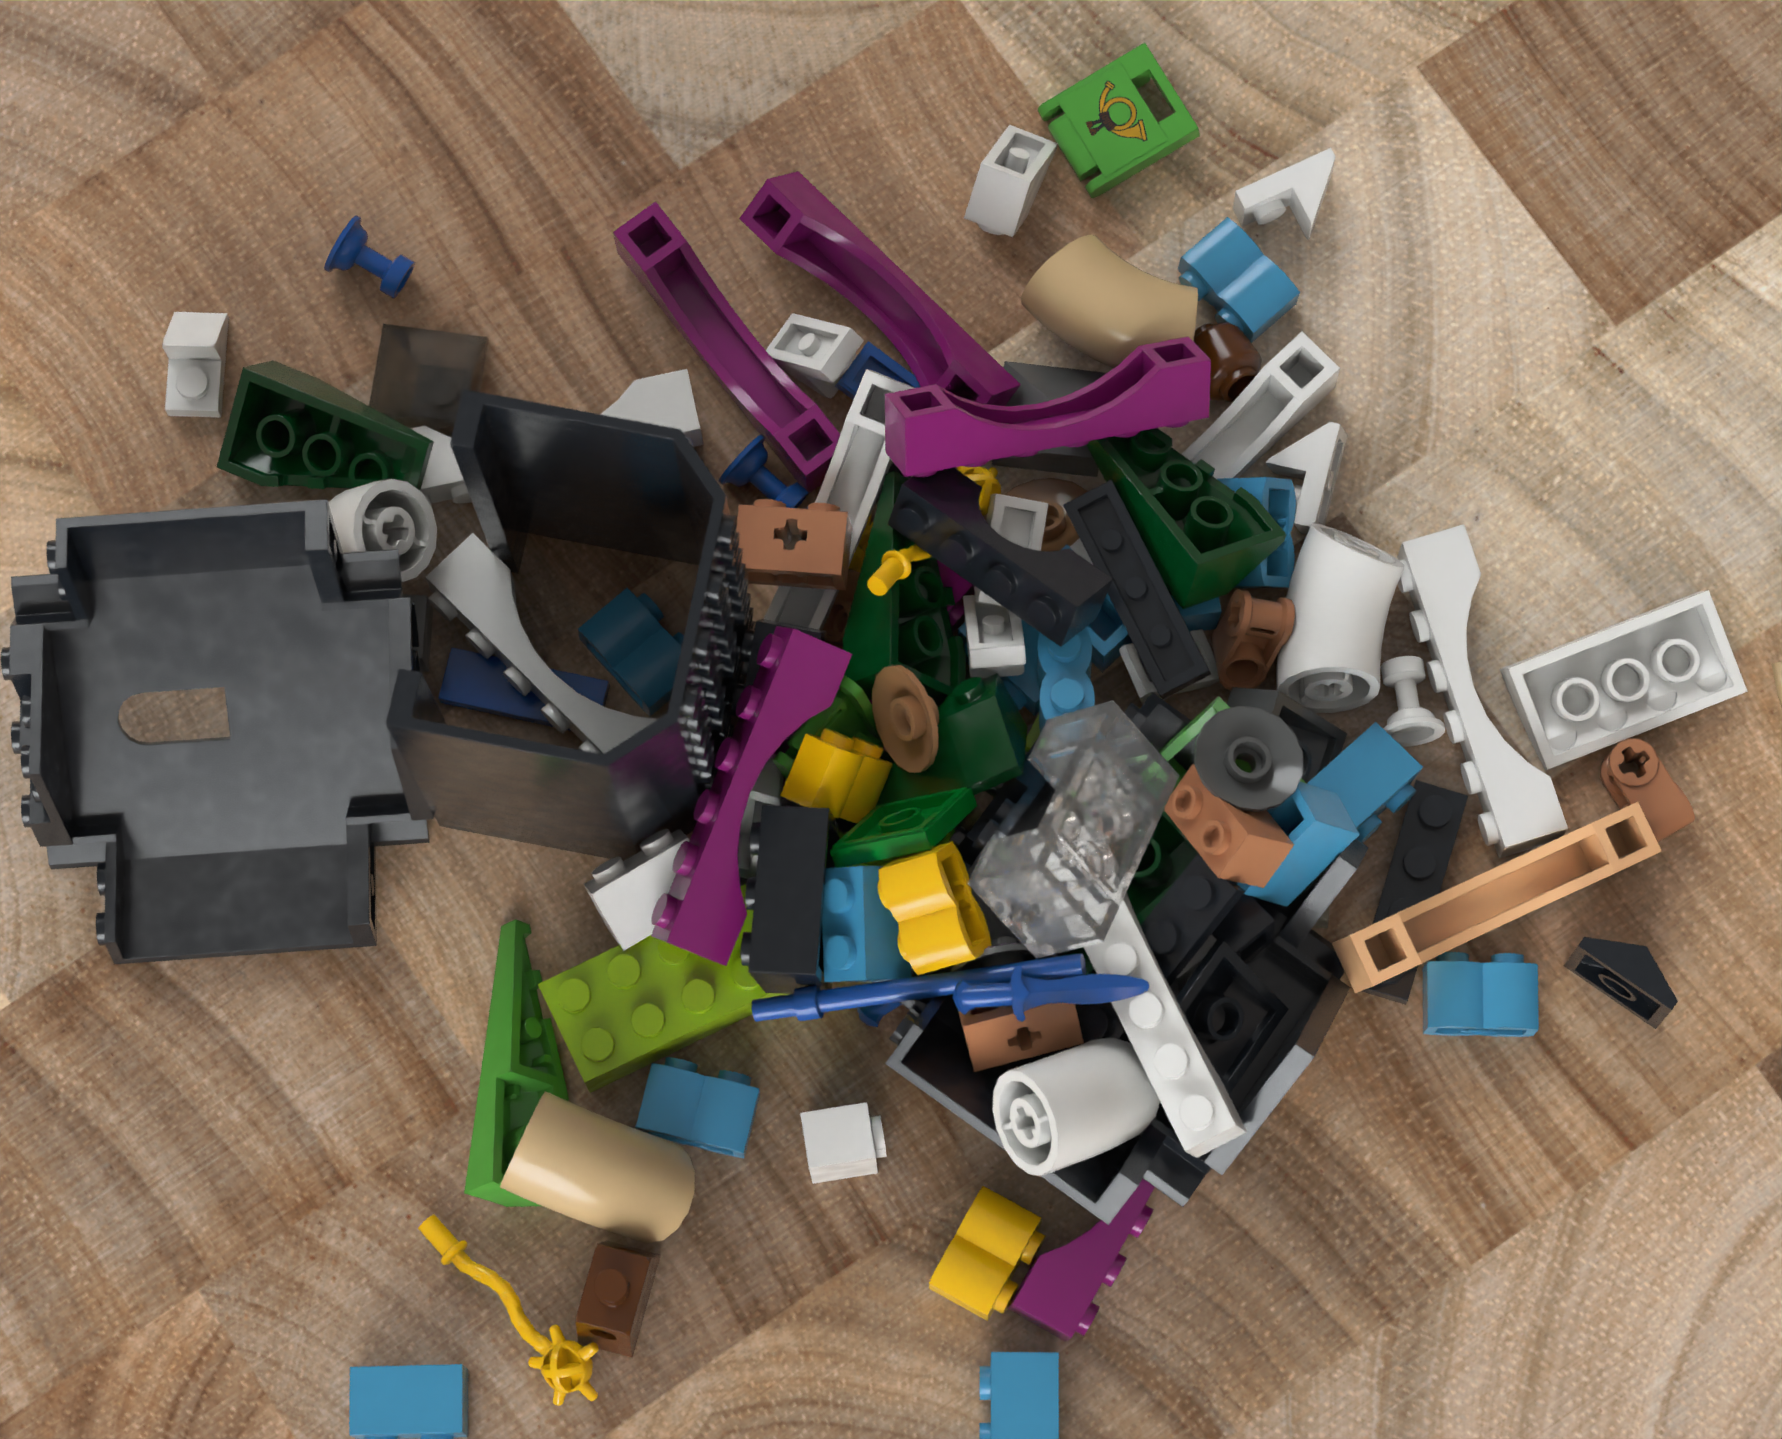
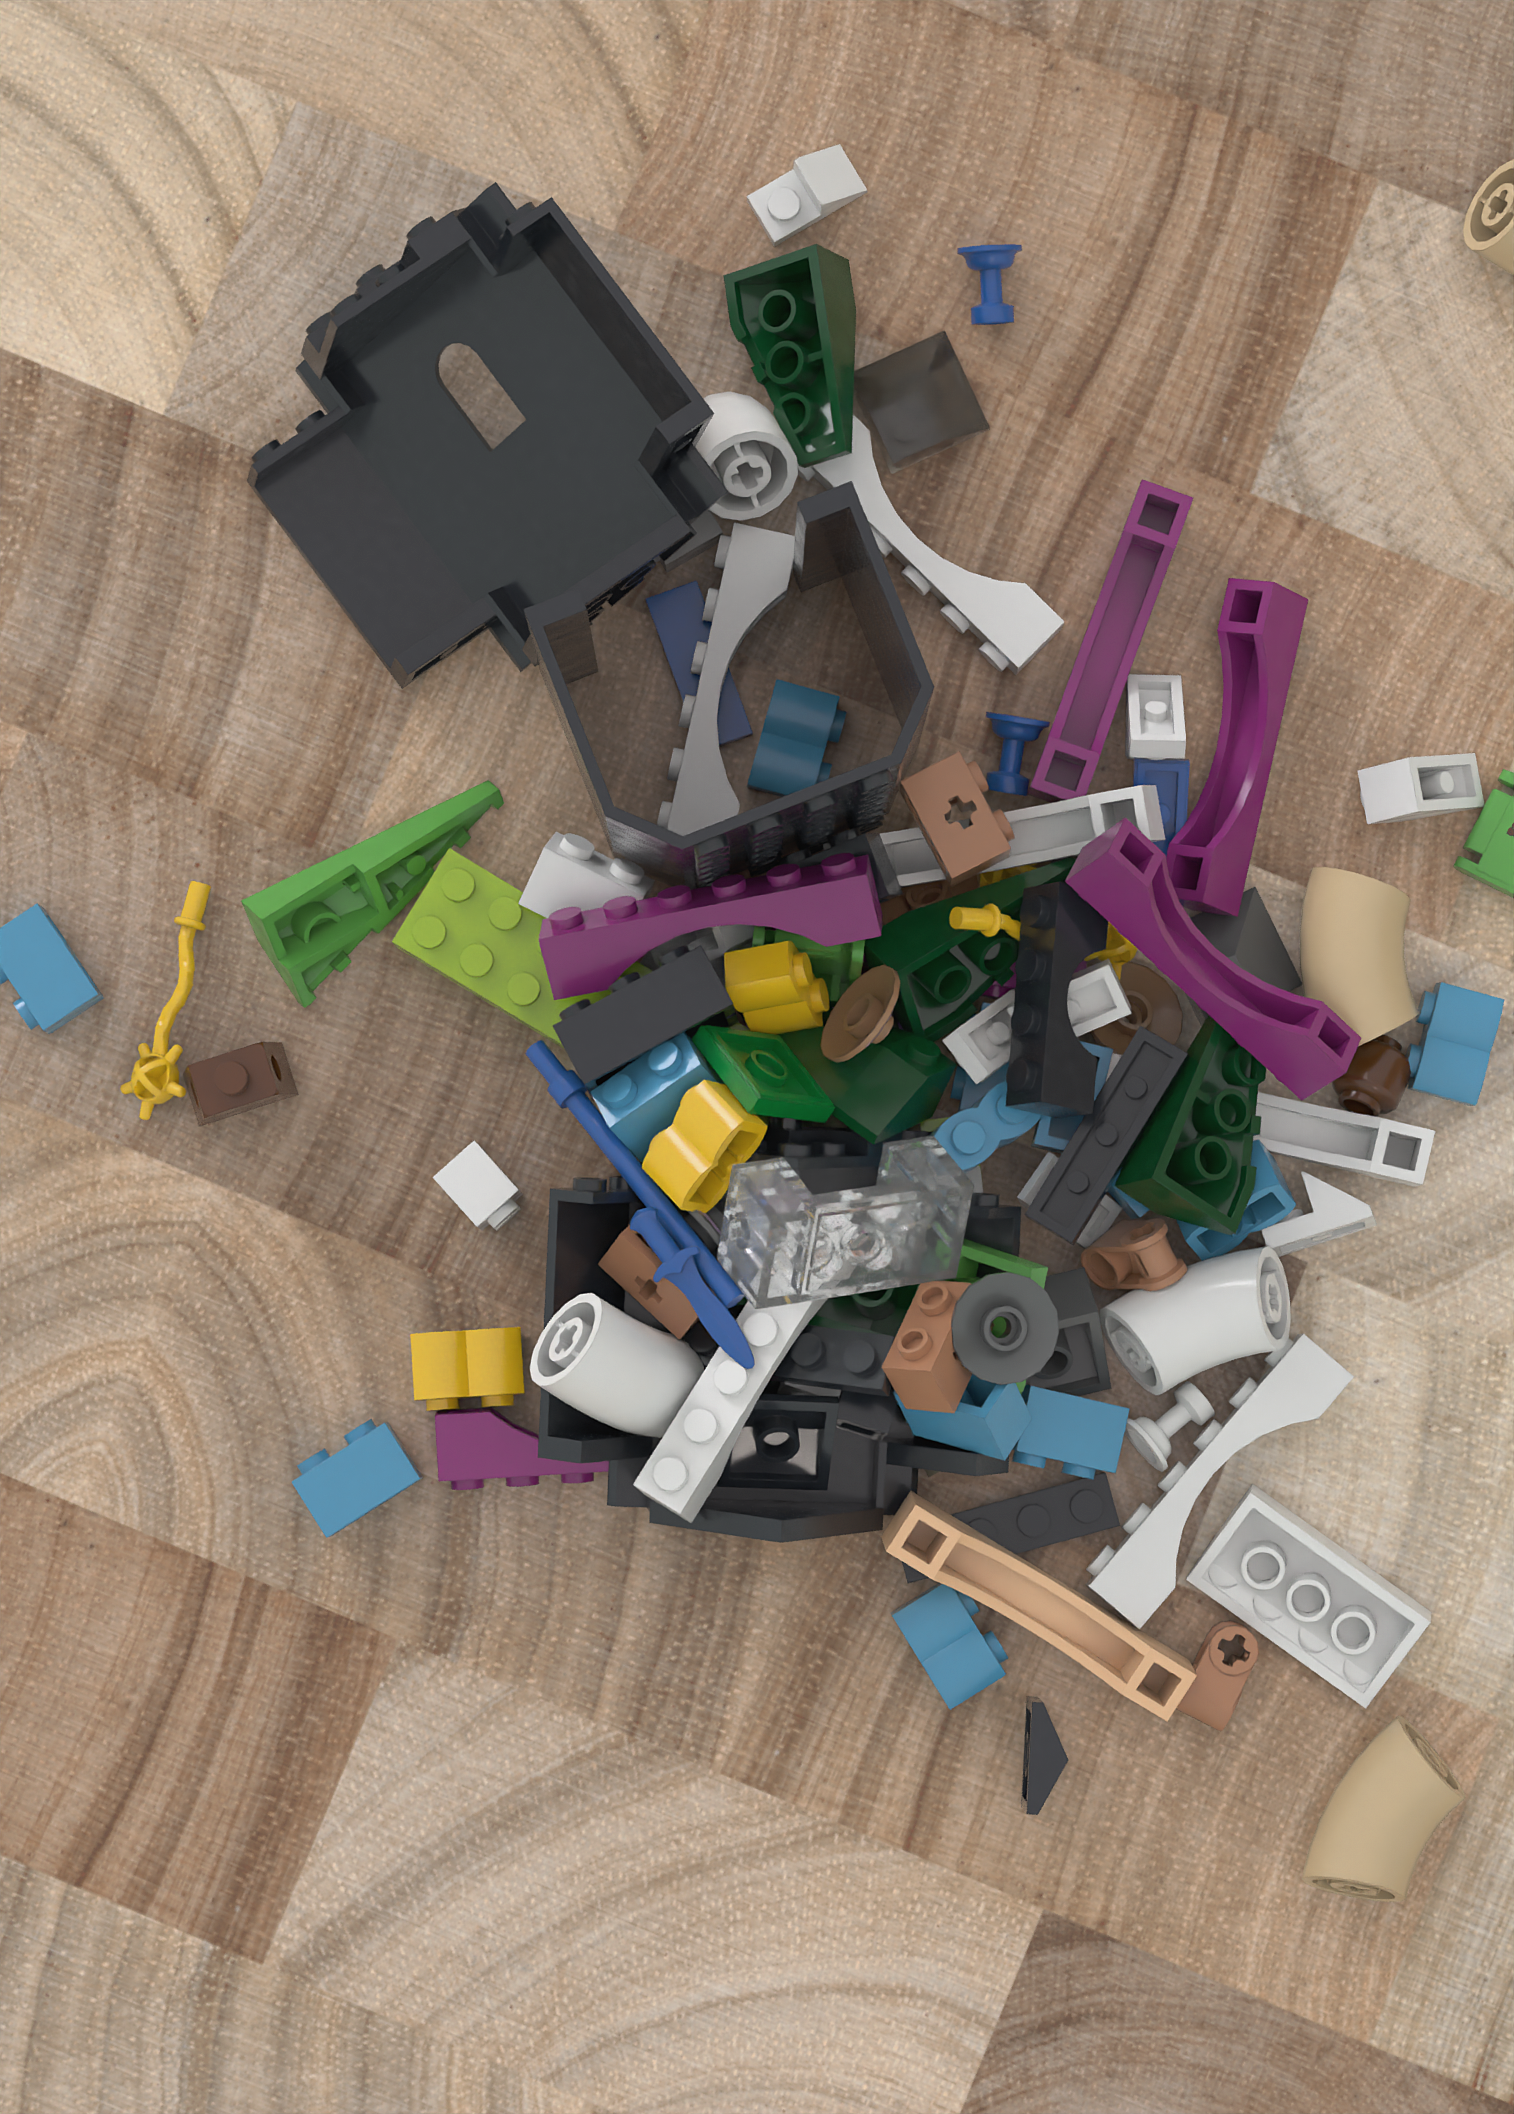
camera: 50 degrees right, 10 degrees up
(601, 1172) = (325, 1005): tan brick -> none
(699, 1108) = (436, 1047): dark azure brick -> none

